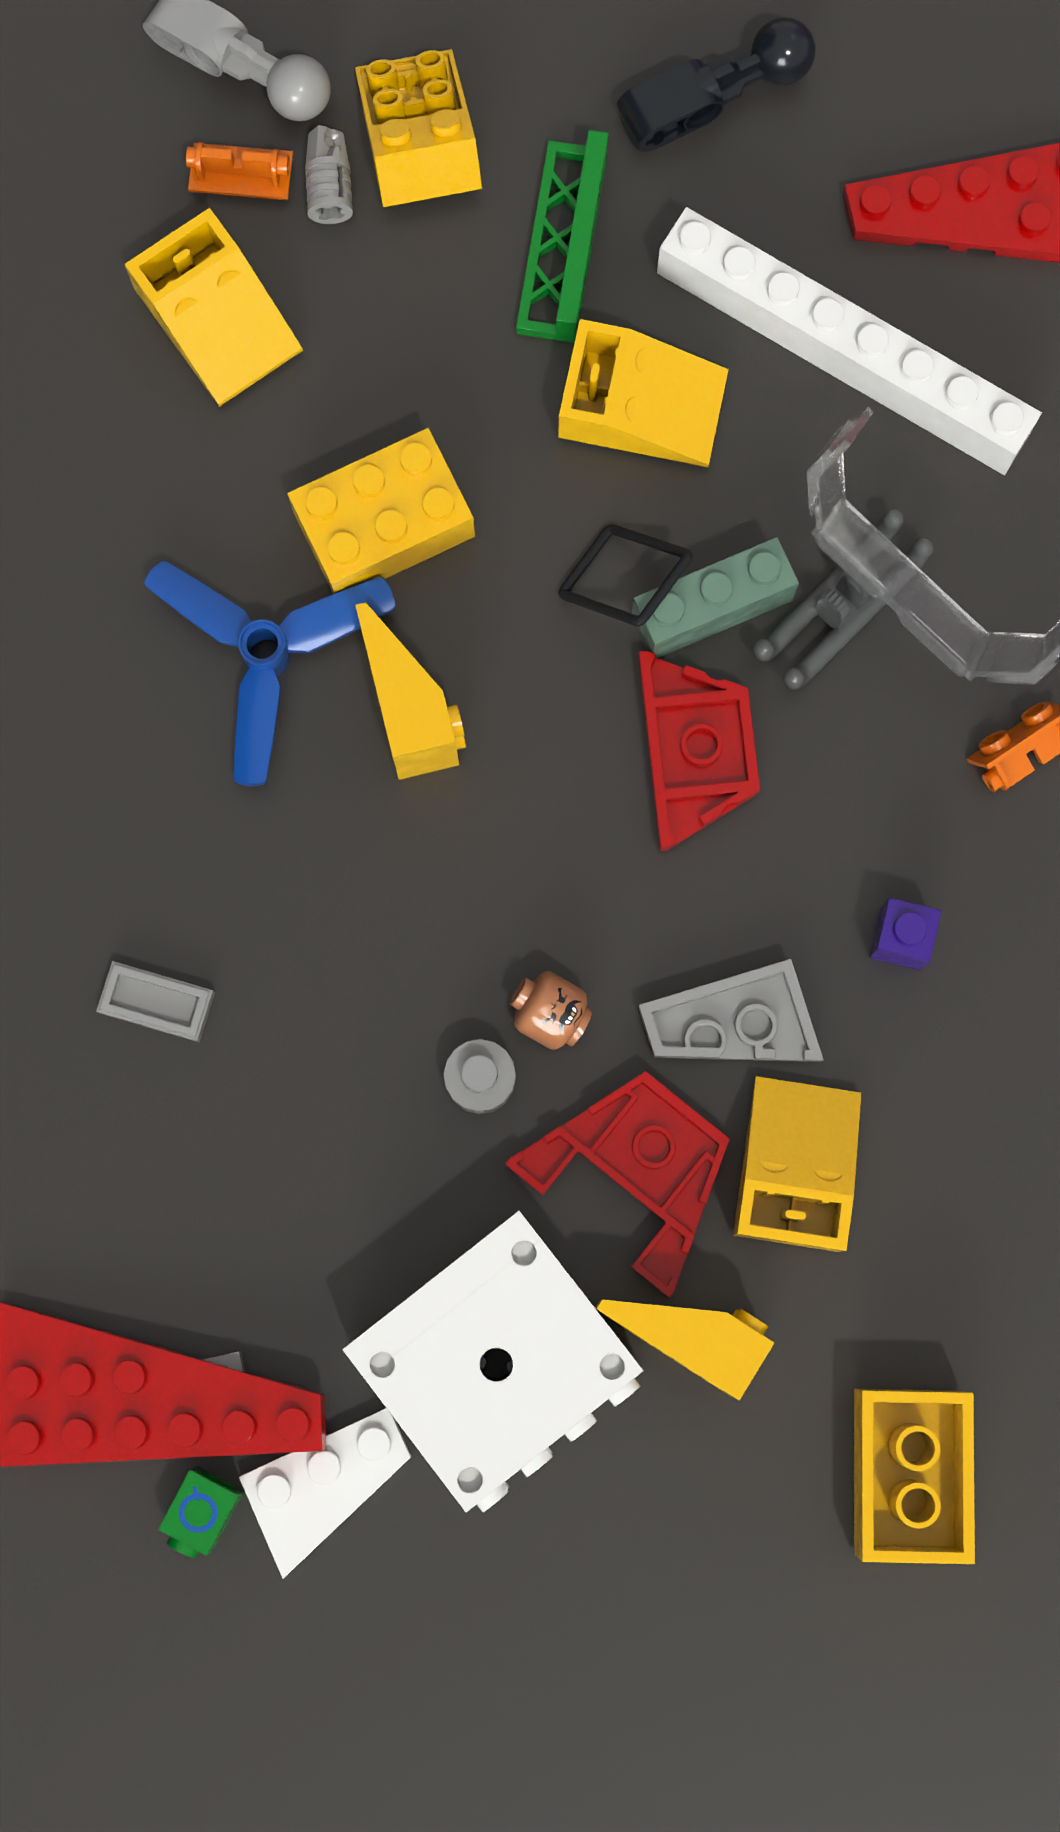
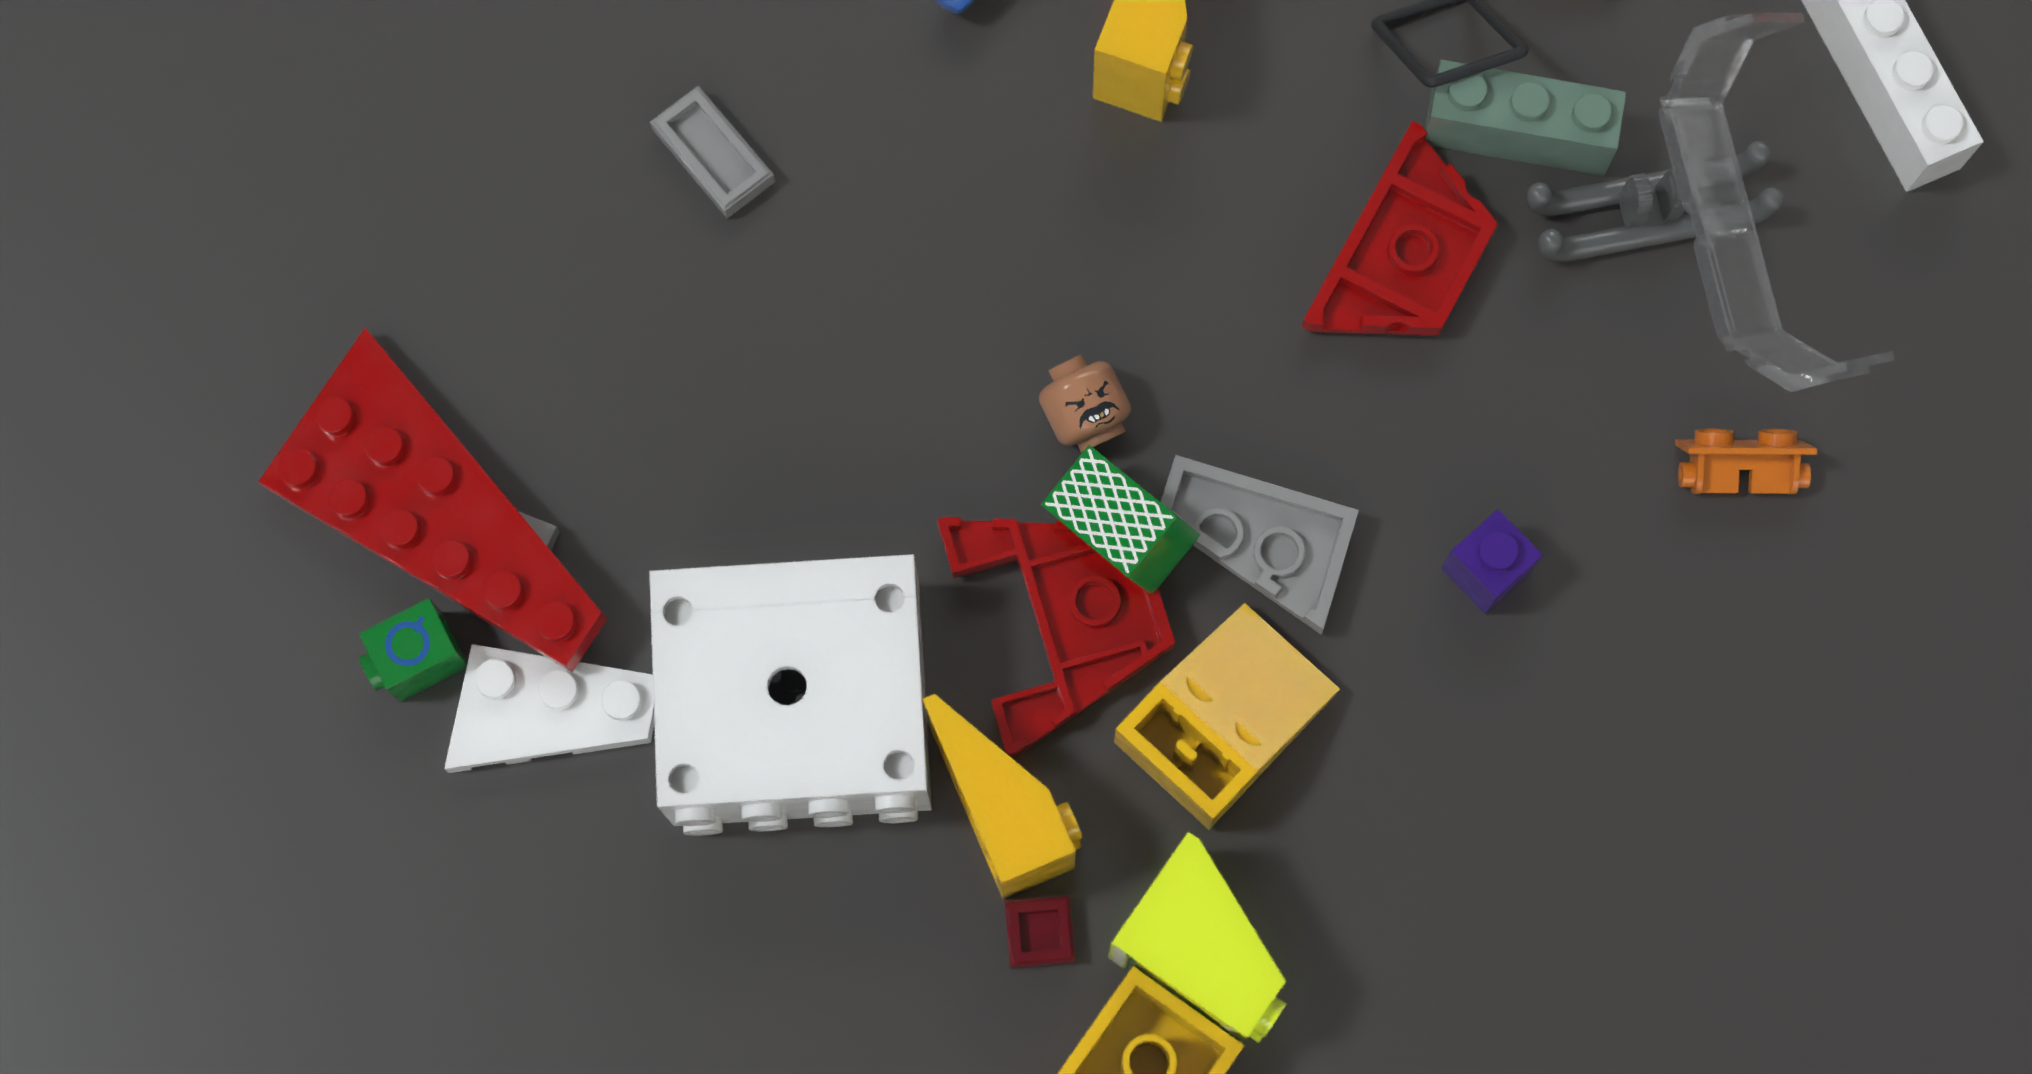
camera: 35 degrees right, 5 degrees down
(480, 1076) = (971, 422): light grey piece -> none
(635, 1079) = (1120, 520): none -> green panel
(773, 1403) = (1039, 932): none -> dark red tile
(895, 1344) = (1202, 946): none -> neon yellow slope

